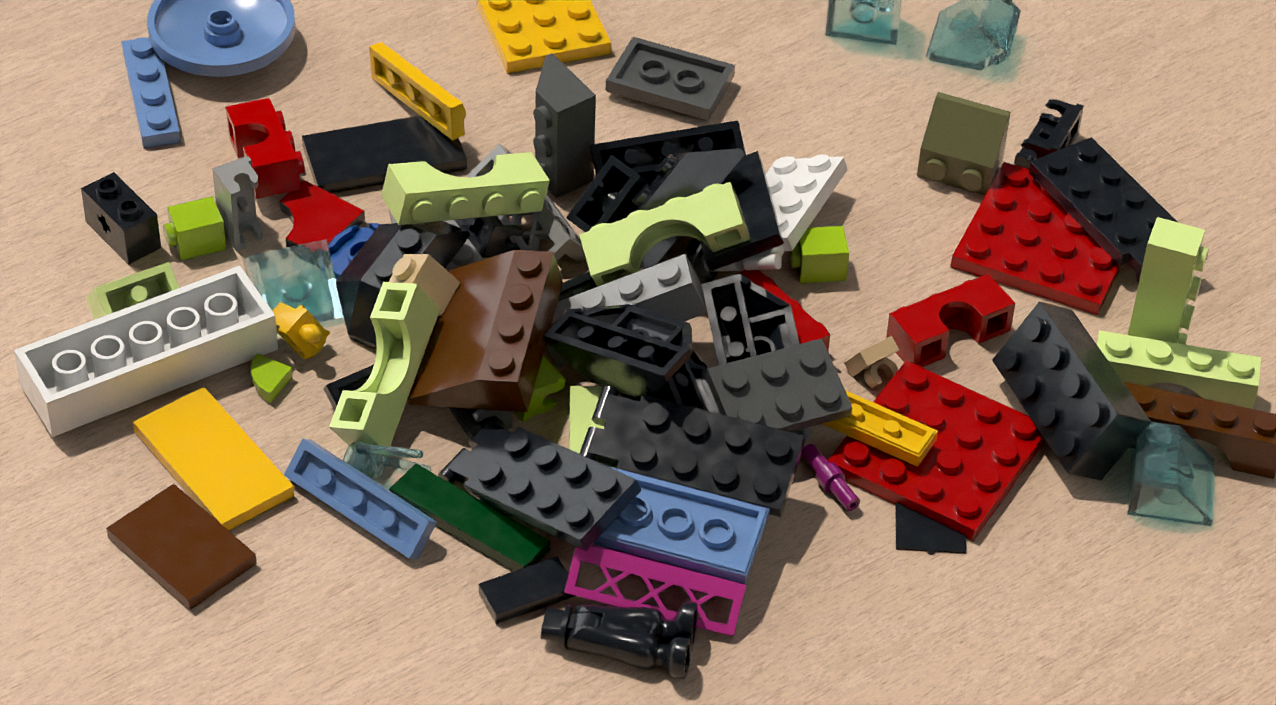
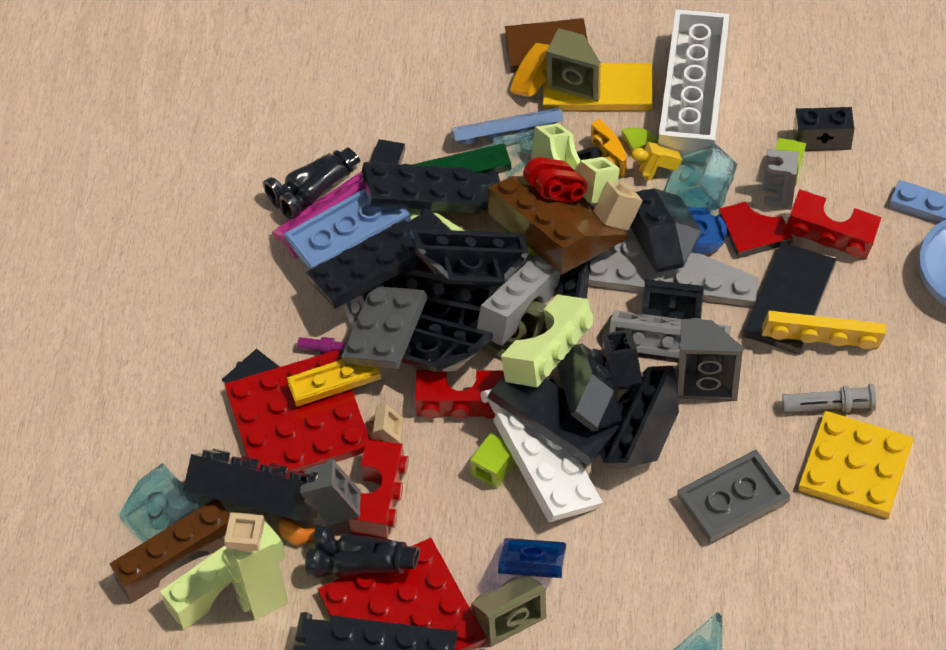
camera: 135 degrees right, 10 degrees up
(131, 290) = (741, 97): yellowish green brick -> none
(227, 450) = (573, 66): none -> olive slope
(250, 514) = (530, 72): none -> light orange slope
(310, 381) = (610, 145): none -> light orange slope
(424, 194) = (684, 233): yellowish green arch -> none
(449, 332) = (555, 180): none -> red brick
(480, 55) = (845, 398): none -> light grey pin
(896, 161) = (532, 558): none -> clear blue plate
(1018, 294) = (332, 493): none -> dark grey hinge
(1037, 270) = (357, 555): none -> black piece
(1183, 215) = (244, 532): none -> tan tile

